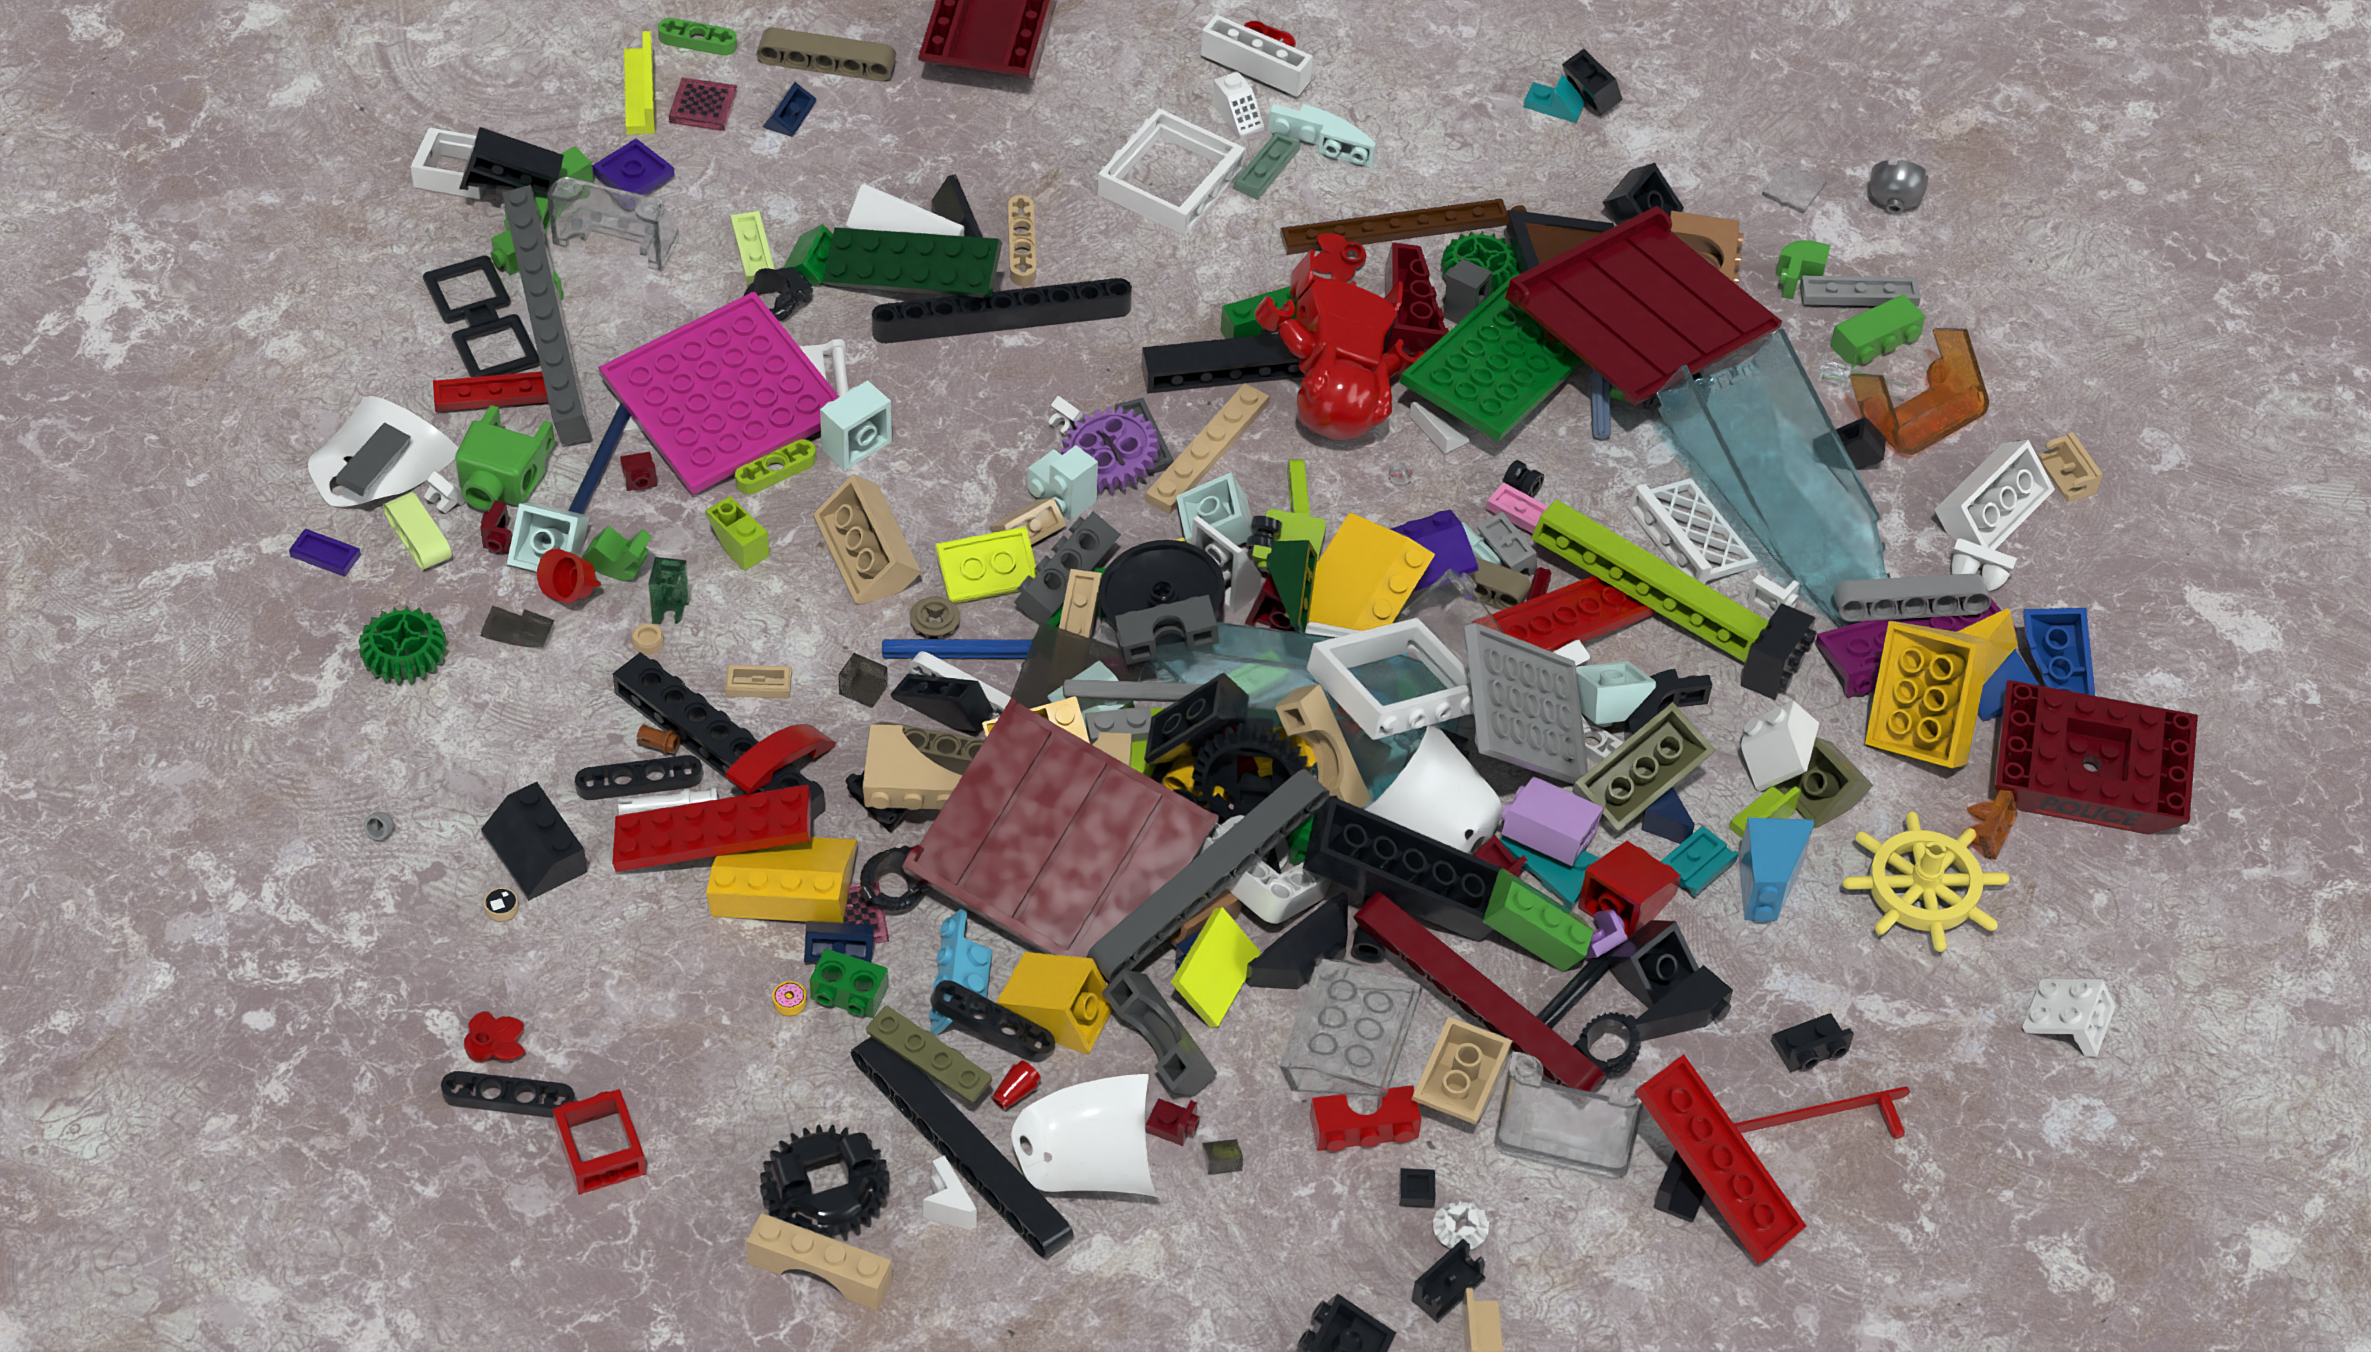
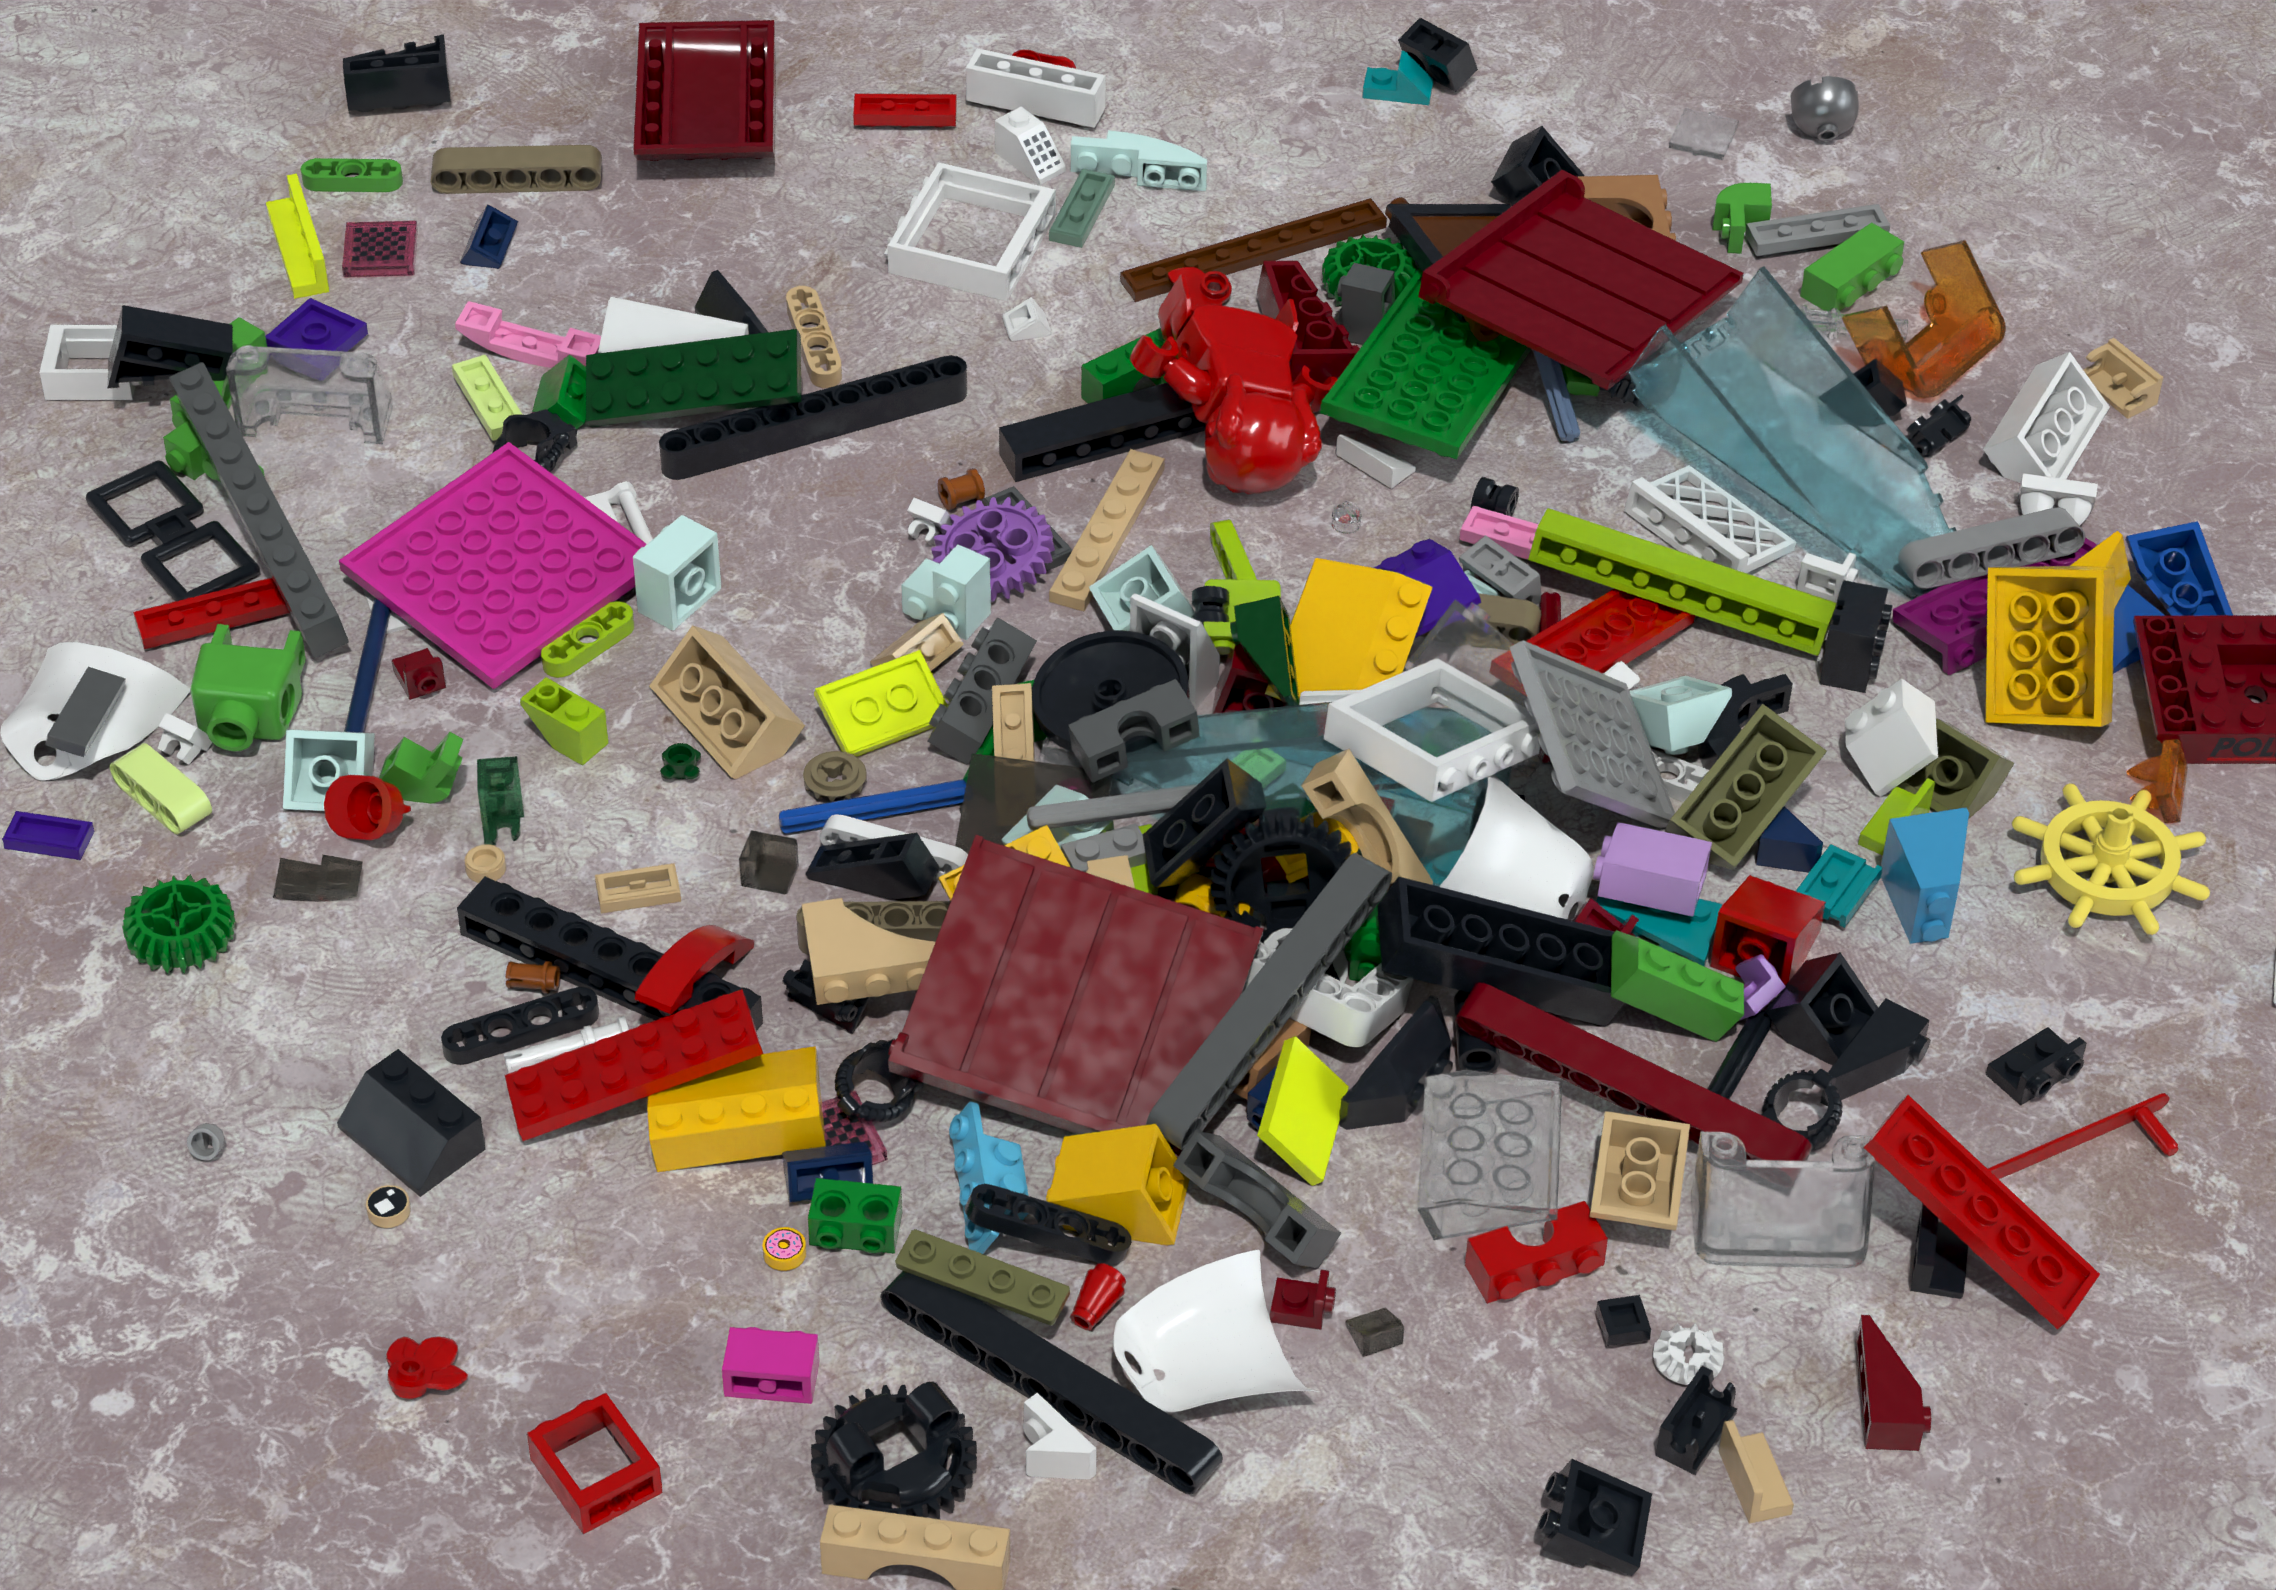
camera: 10 degrees left, 5 degrees down
(494, 529) = (259, 773): dark red bracket -> none
(506, 1100) = (460, 1422): black beam -> none
(752, 1090) = (770, 1365): none -> dark pink brick
(791, 205) = (521, 343): none -> bright pink slope
(819, 583) = (680, 762): none -> dark green plate
(1100, 393) = (961, 489): none -> dark orange bush
(1148, 55) = (905, 110): none -> red plate
(1194, 257) = (1026, 321): none -> white slope
(1607, 1291) = (1888, 1393): none -> dark red slope
(1894, 488) = (1945, 417): none -> black hinge

